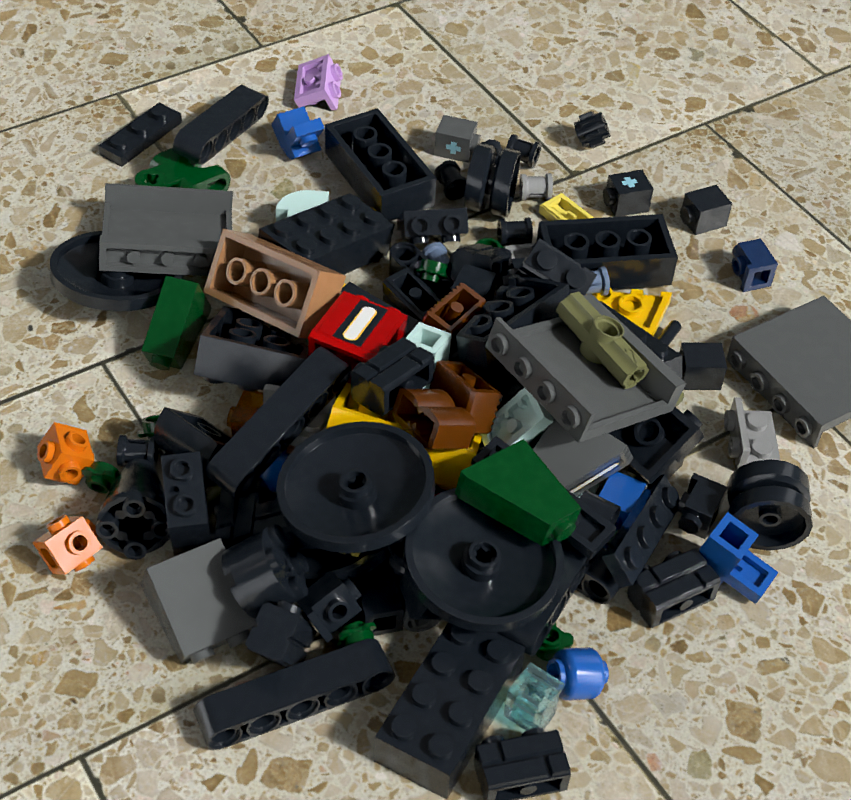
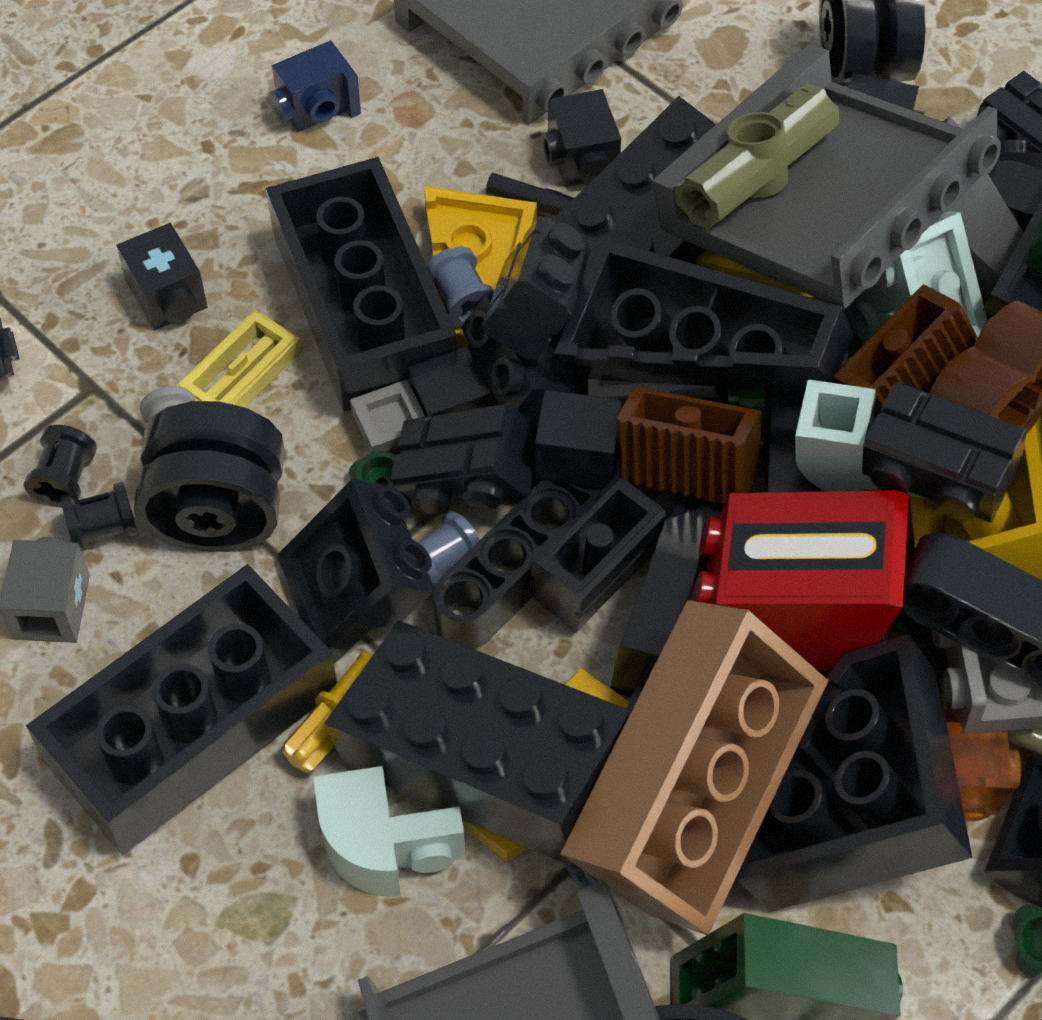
camera: 100 degrees left, 10 degrees up
(297, 133) = (98, 913): blue brick -> none
(432, 271) = (533, 516): dark green plate -> none
(449, 176) = (182, 575): black bush -> none
(514, 231) = (316, 443): black bush -> none
(705, 209) = (183, 160): black brick -> none
(732, 561) = (970, 62): blue brick -> none
(750, 434) = (706, 73): light grey bracket -> none

